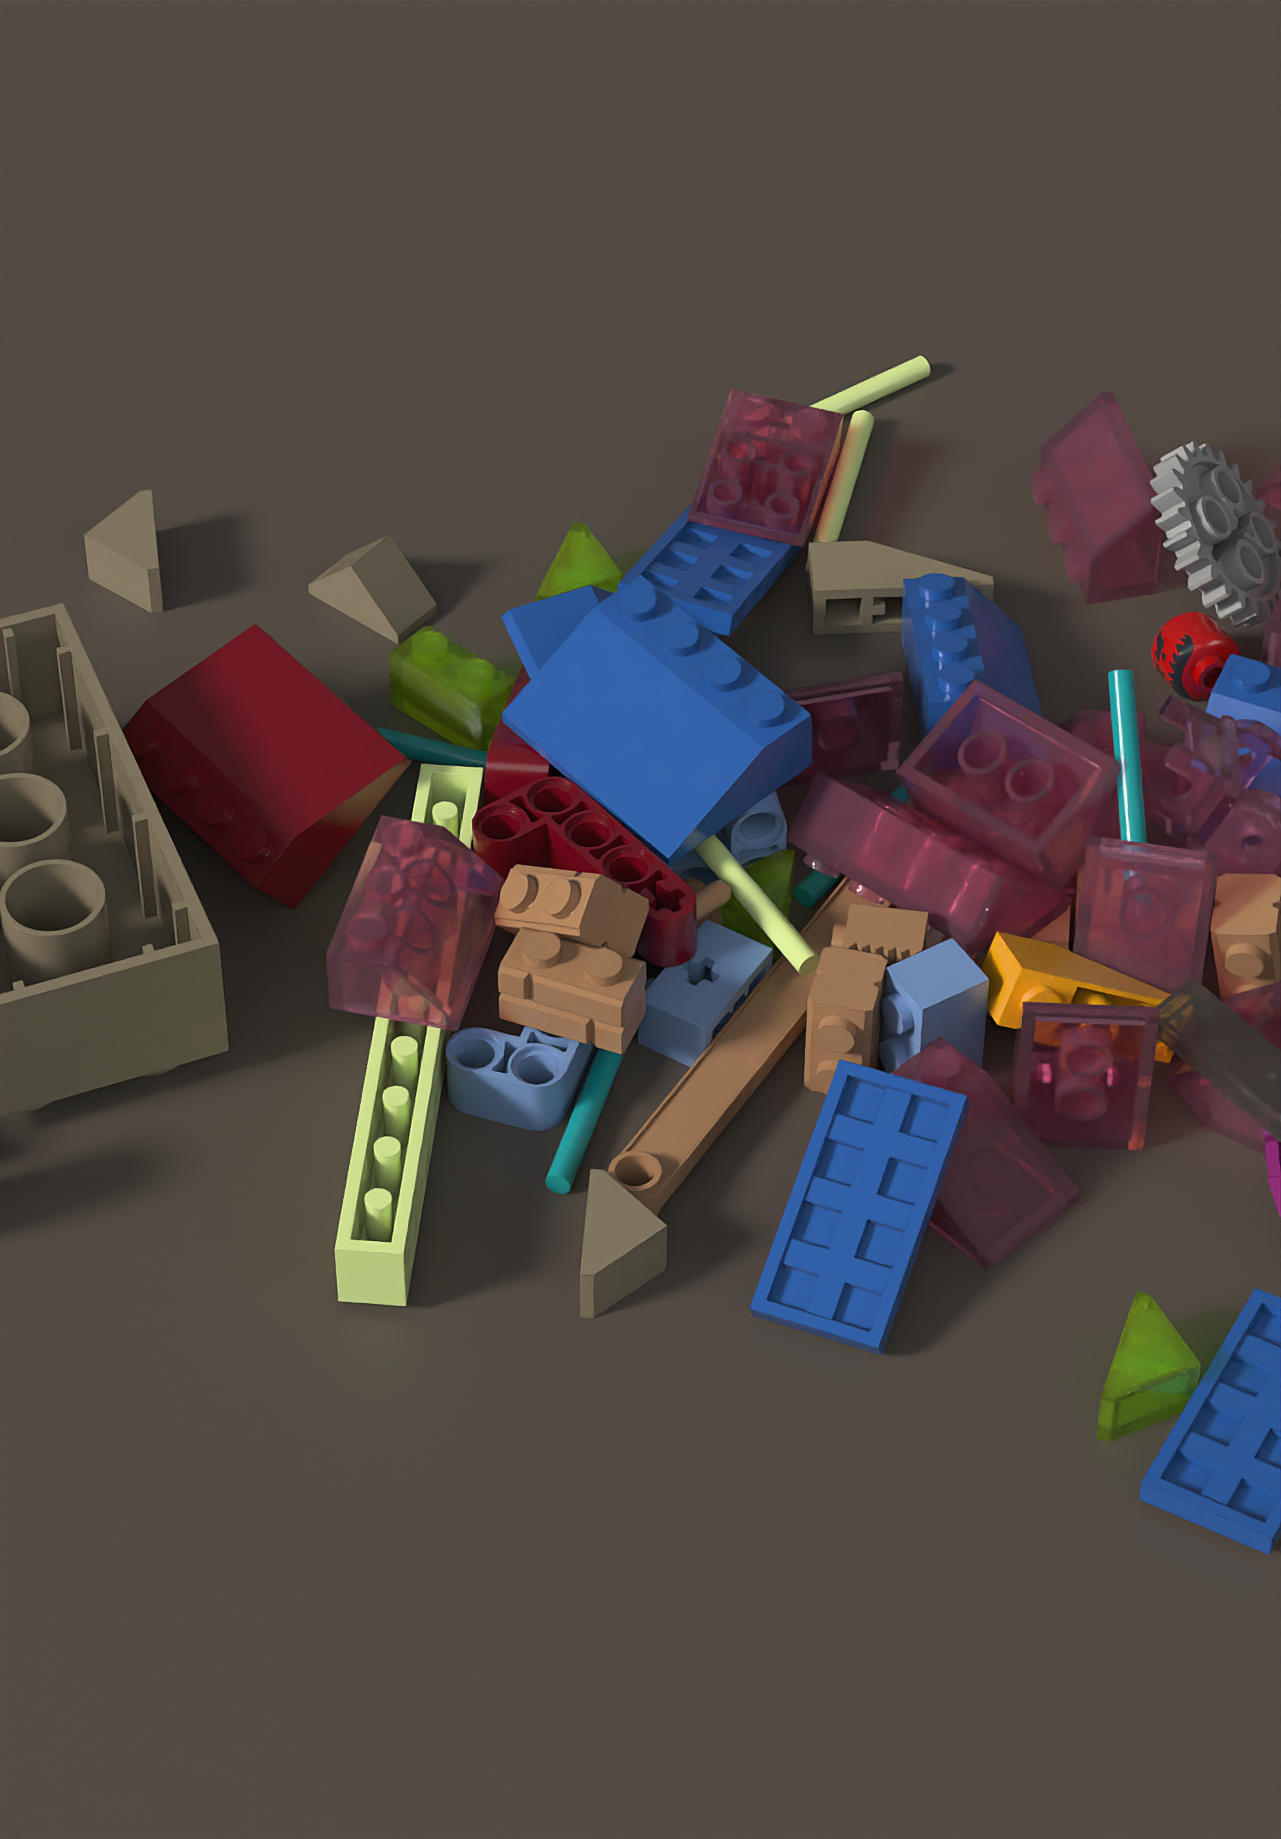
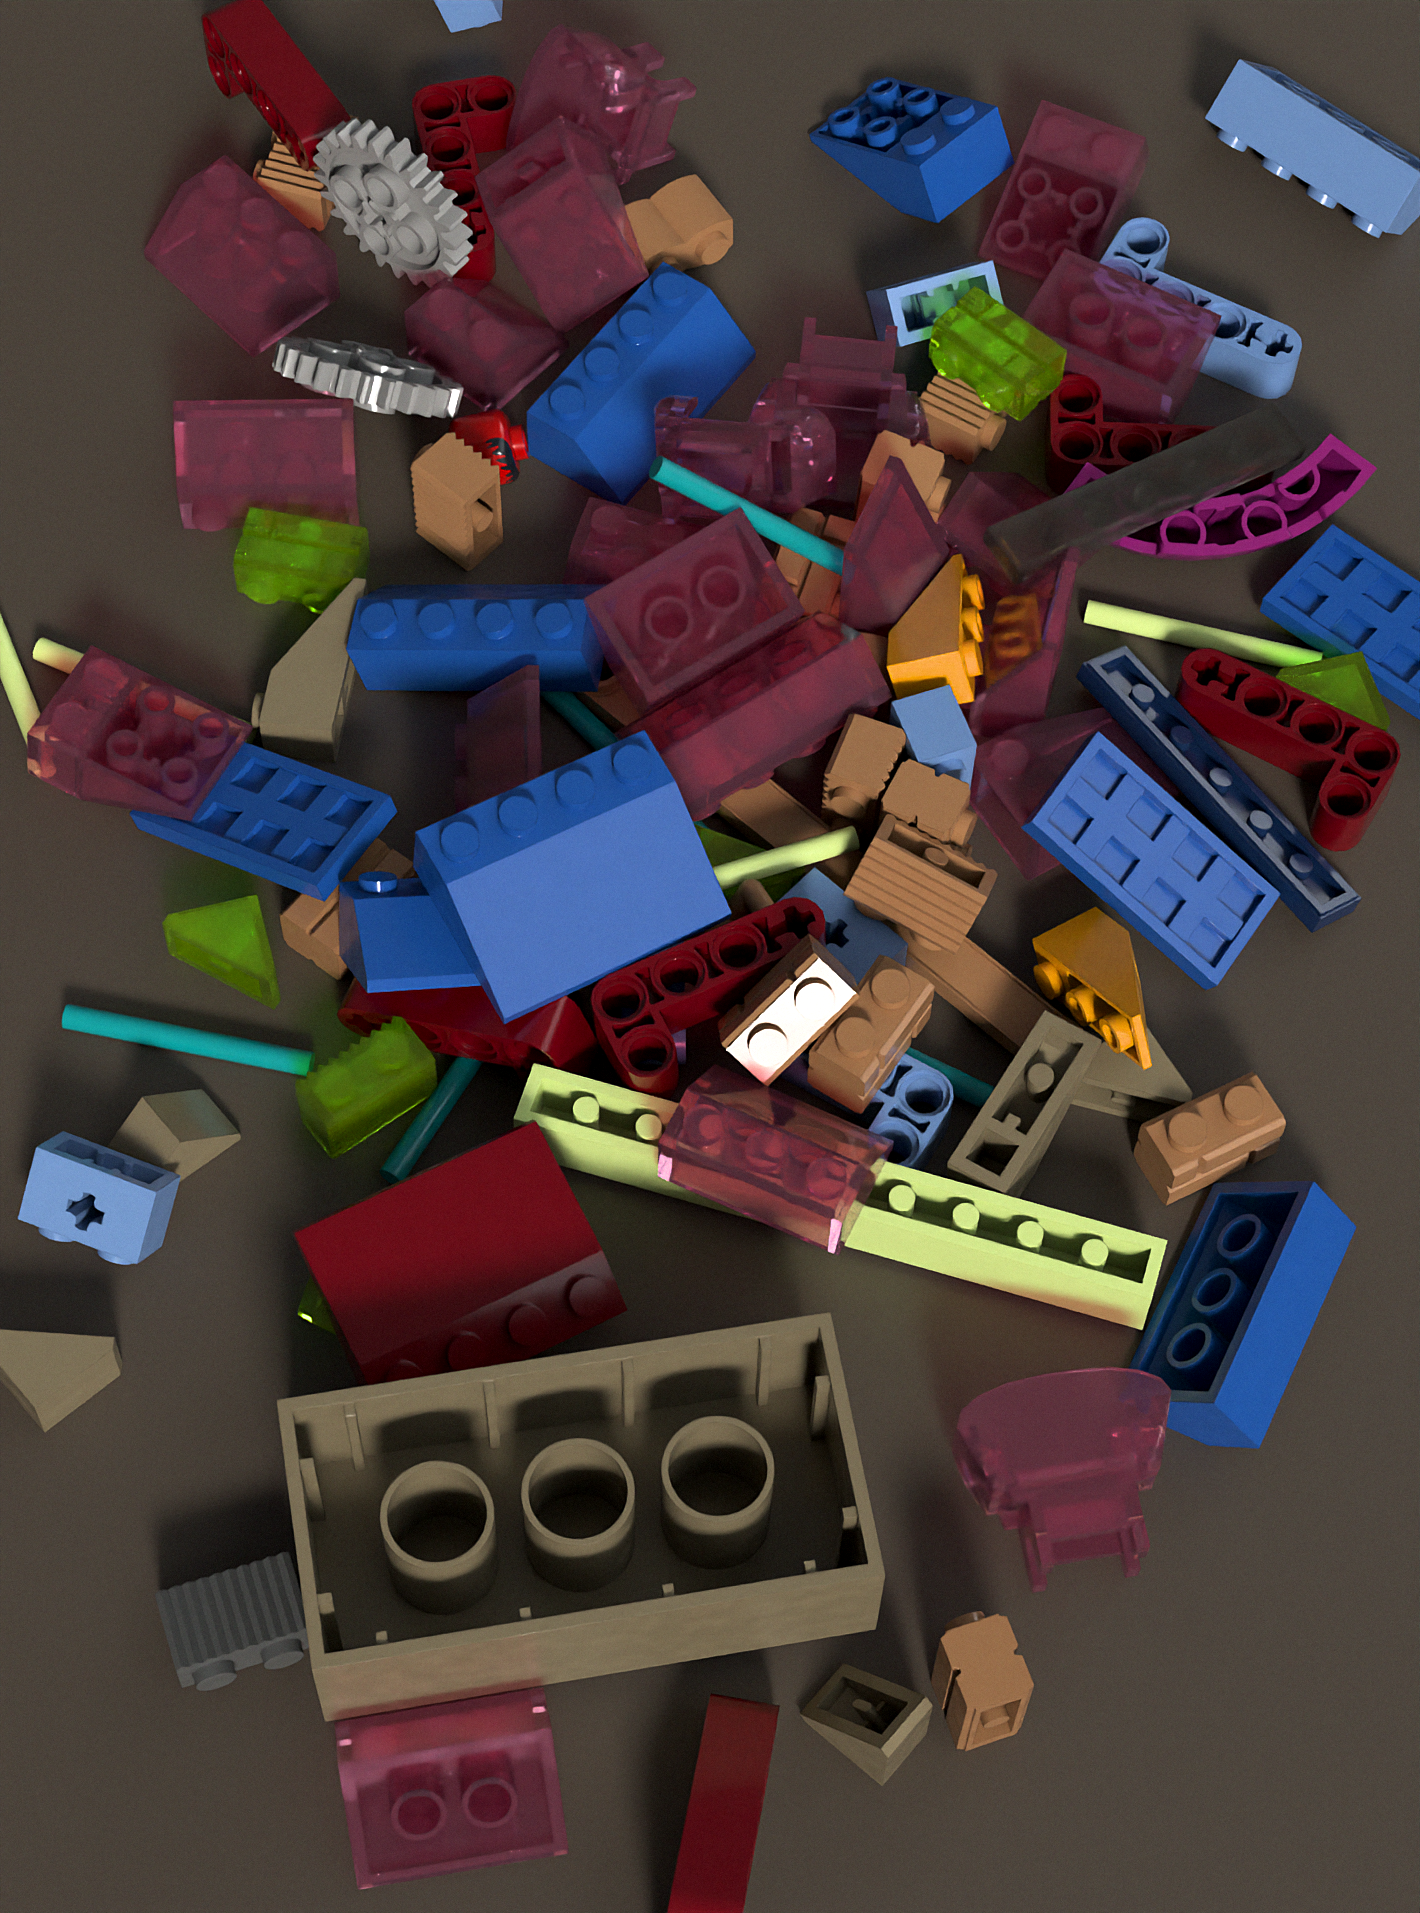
camera: 80 degrees left, 15 degrees up
(155, 1209) = (1073, 1457): none -> clear pink piece
(297, 542) = (98, 1198): none -> medium blue brick
(363, 1367) = (1243, 1306): none -> blue slope
(483, 579) = (188, 1040): none -> teal bar
(522, 1141) = (1024, 1108): none -> dark tan slope
(557, 1312) = (1209, 1138): none -> medium nougat brick
(697, 1185) = (1095, 975): none -> light orange slope
(758, 1008) = (920, 885): none -> medium nougat brick
(999, 1289) = (1218, 788): none -> dark blue tile
(1017, 550) = (298, 558): none -> clear neon green brick
(1057, 1396) = (1225, 692): none -> dark red beam
(1108, 627) = (457, 500): none -> medium nougat brick
(1198, 1256) = (1197, 635): none -> yellowish green bar

